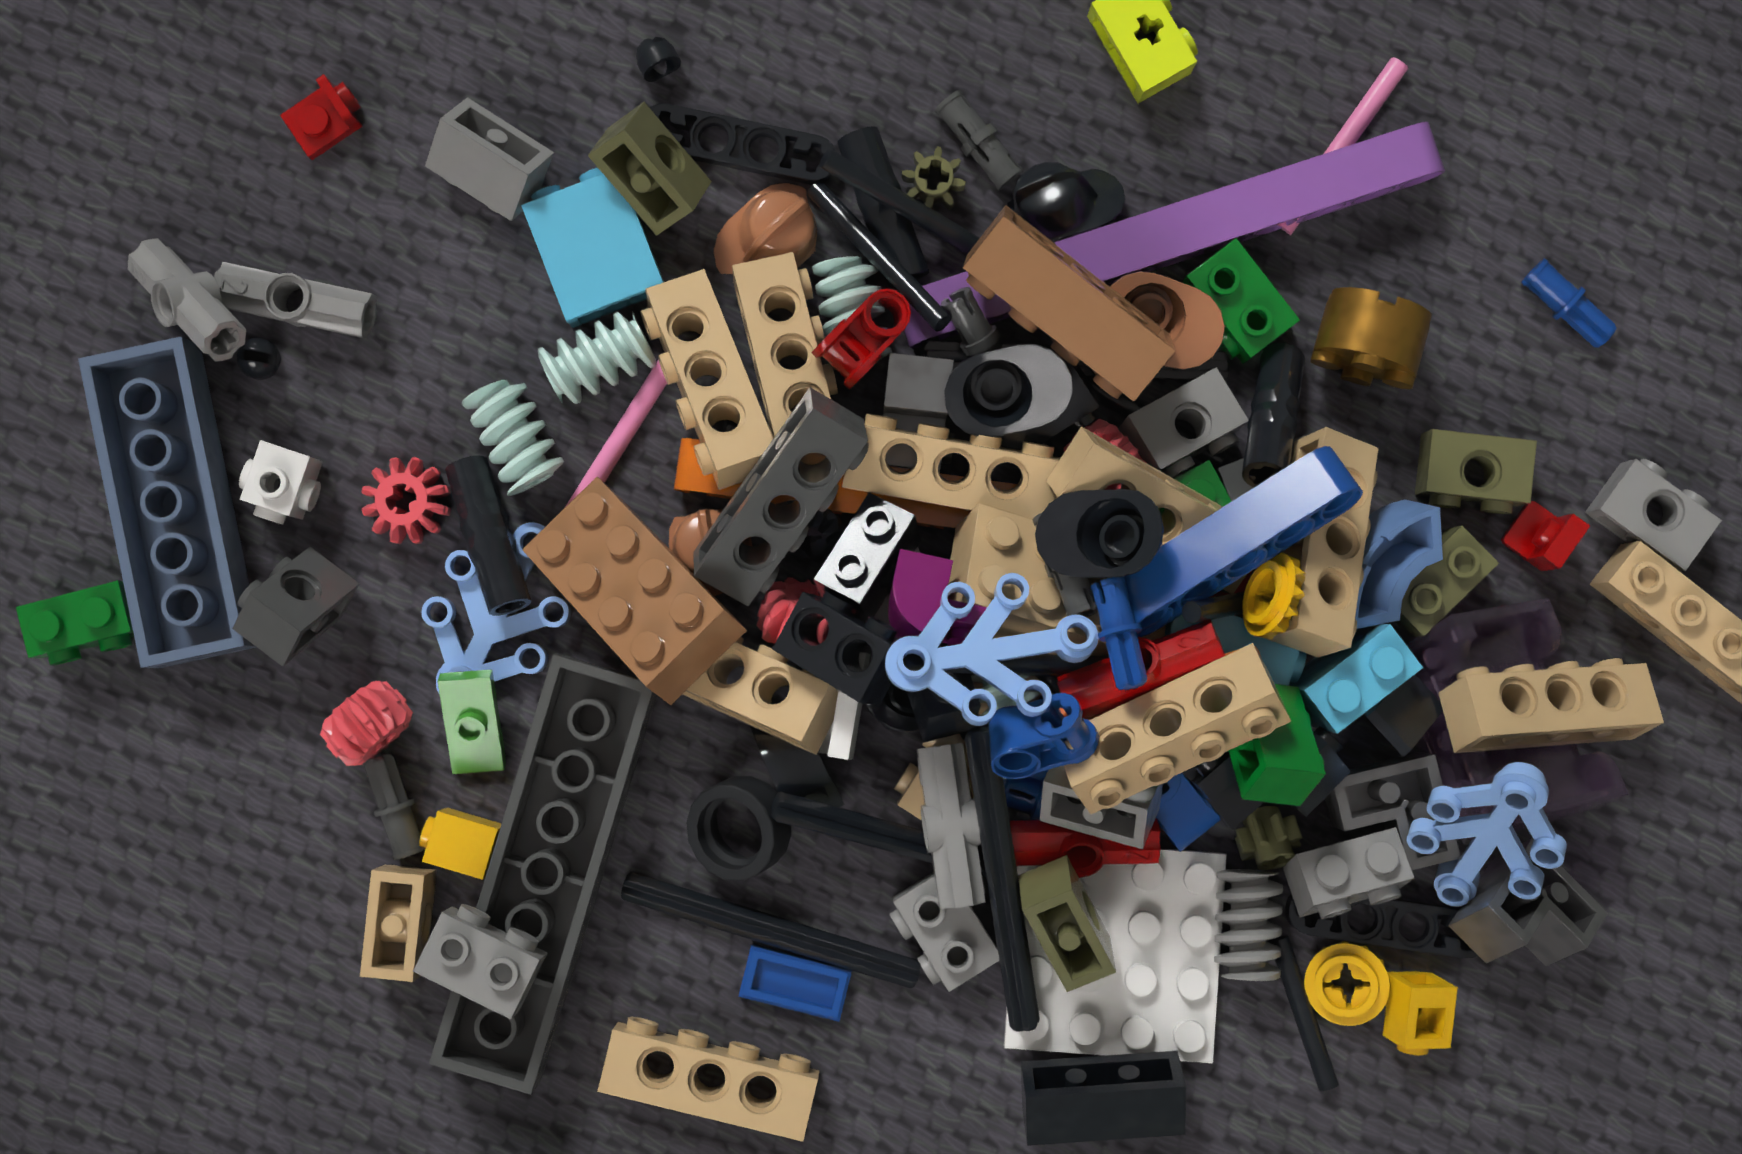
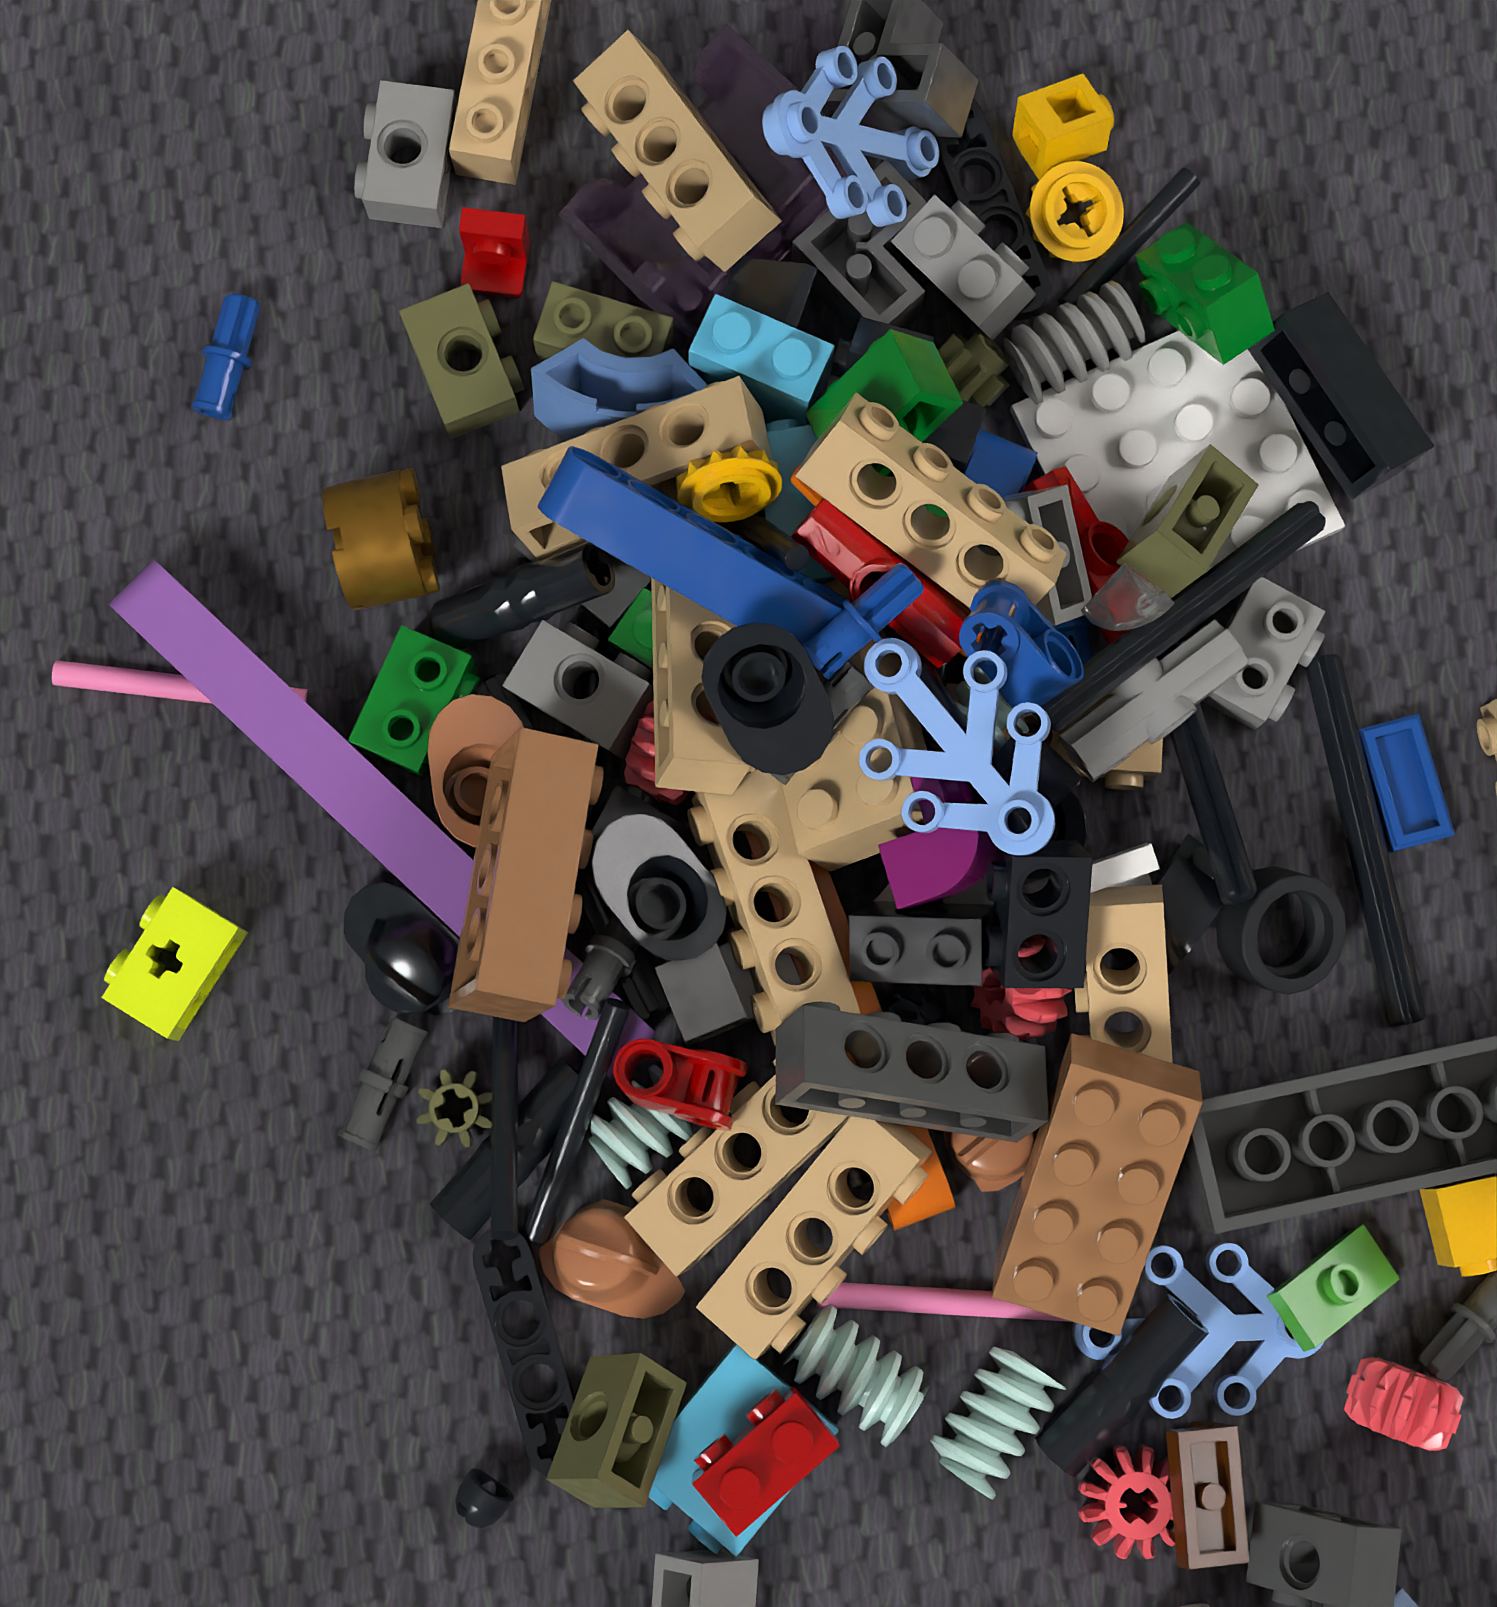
camera: 125 degrees left, 5 degrees down
(381, 549) = (1207, 1495): none -> panel
(573, 254) = (763, 1460): none -> red brick
(1032, 843) = (1126, 601): none -> clear tile
(1233, 1039) = (1204, 292): none -> green brick

